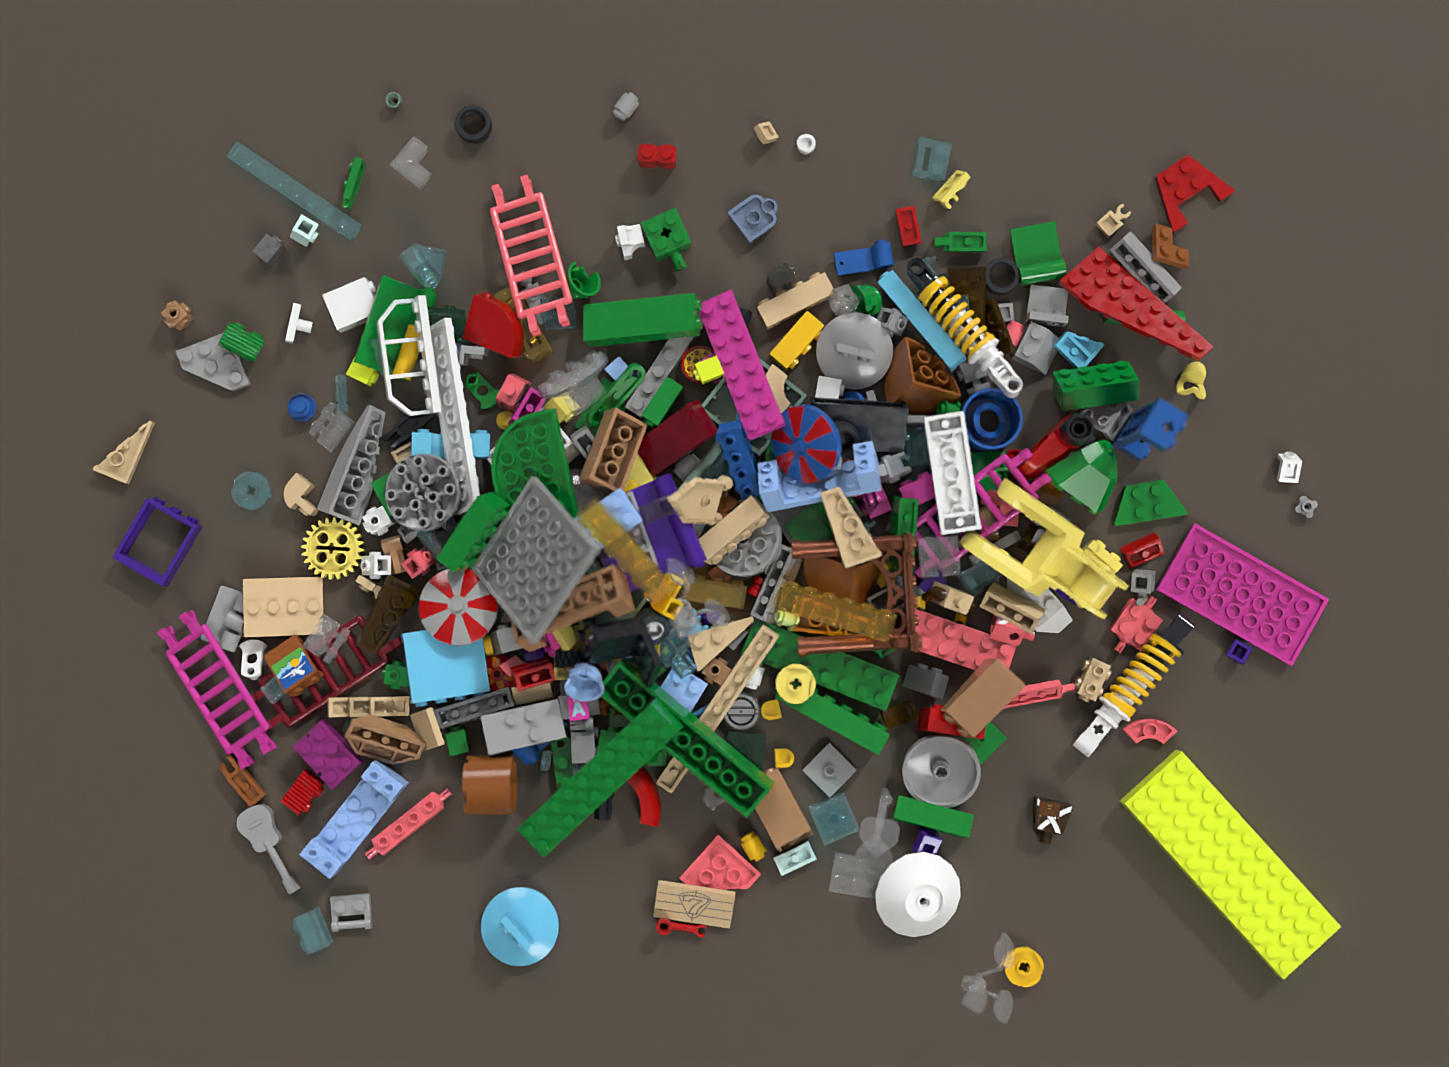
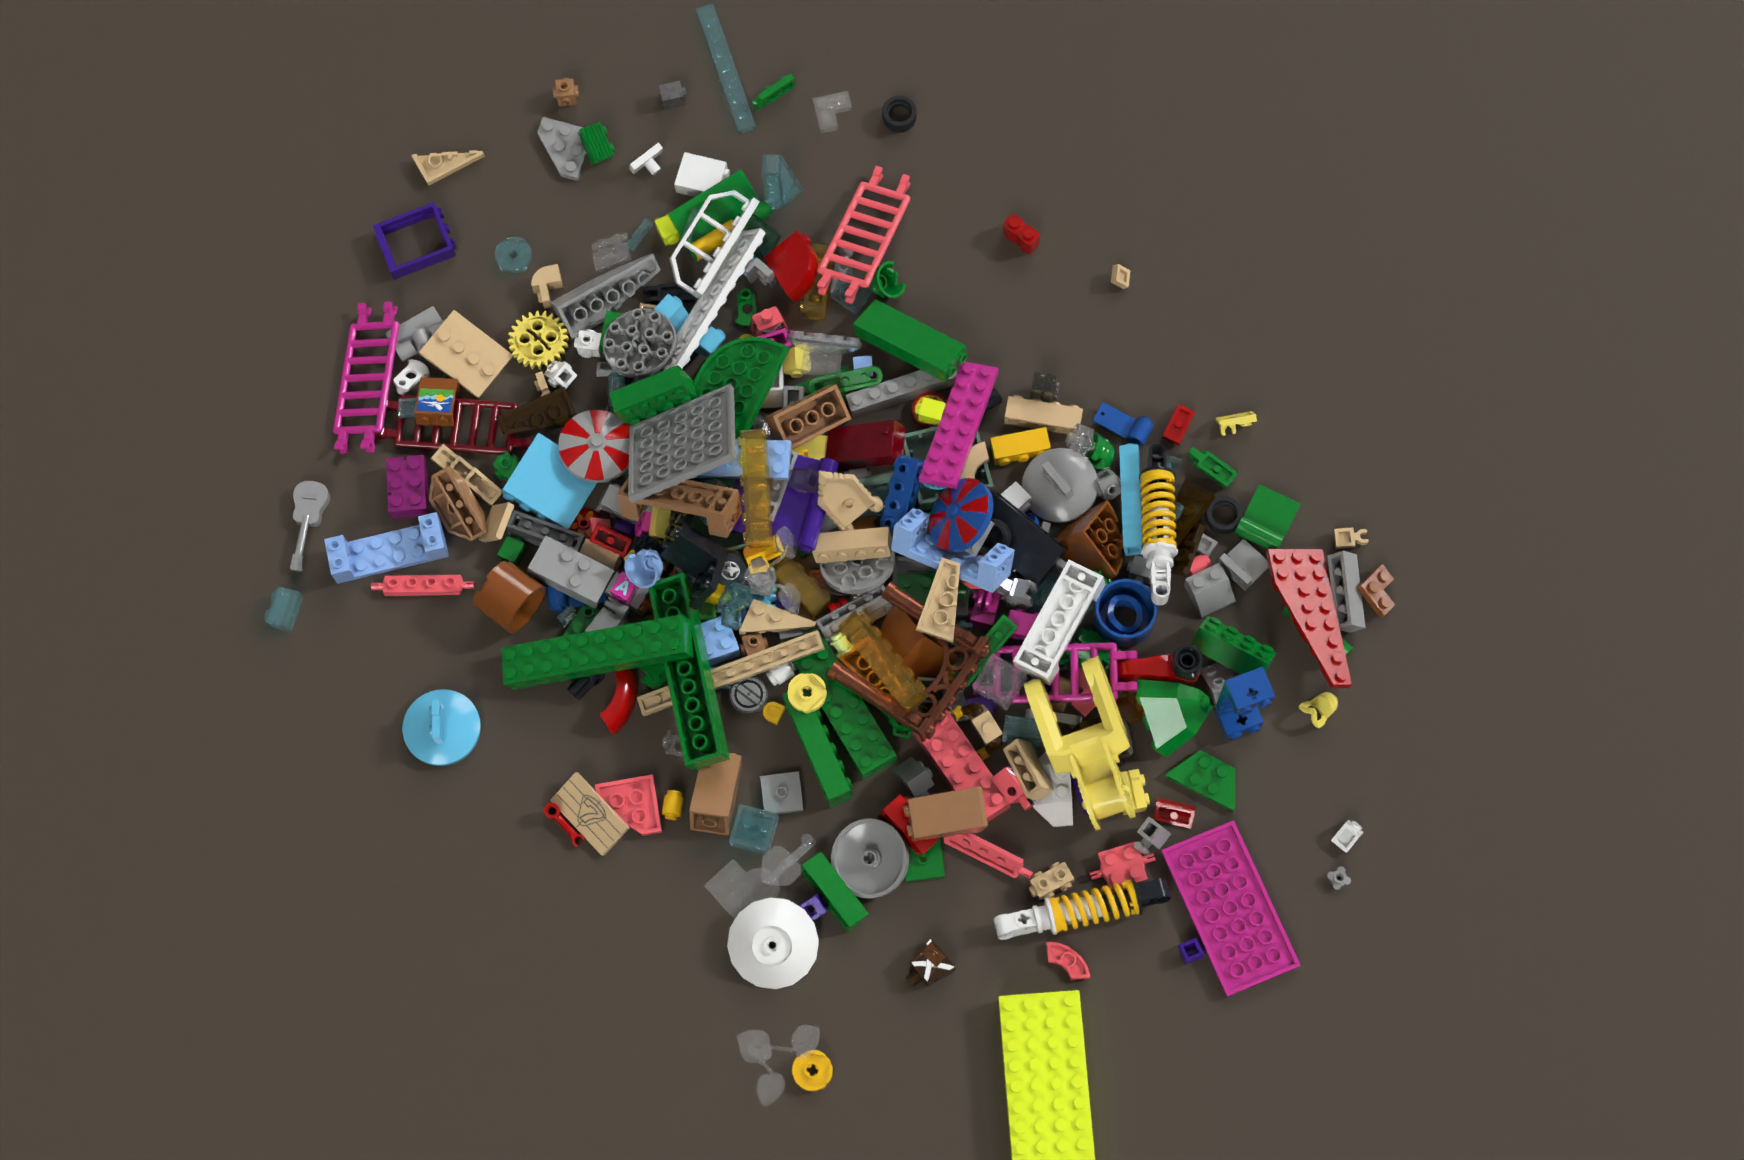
camera: 40 degrees right, 15 degrees down
(242, 782) = (326, 461): dark orange hinge -> none
(302, 407) = (601, 223): blue plate -> none
(303, 792) = (364, 501): red brick -> none
(304, 231) = (709, 99): light aqua brick -> none
(321, 636) = (475, 396): clear plate -> none
(351, 905) = (327, 614): light grey plate -> none
(391, 103) = (850, 57): sand green hinge -> none
(395, 548) = (585, 374): medium nougat piece -> none
(418, 562) = (593, 395): coral brick -> none
(487, 645) = (594, 497): yellow tile -> none
(625, 106) = (1026, 181): light grey brick -> none
(630, 239) = (950, 279): white brick -> none
(662, 403) = (877, 410): green brick -> none
(671, 246) = (980, 306): green brick -> none
(749, 745) = (734, 725): clear green tile -> none
(754, 216) = (1061, 331): sand blue plate -> none
(783, 757) = (753, 756): yellow tile -> none
(794, 858) = (698, 840): light aqua plate -> none
(806, 144) = (1146, 307): white tile -> none
(898, 715) = (870, 790): dark brown bracket -> none
(937, 162) = (1240, 394): clear light blue plate -> none
(1077, 349) = (1242, 614): medium azure wing -> none
(1182, 182) = (1431, 550): red wing -> none

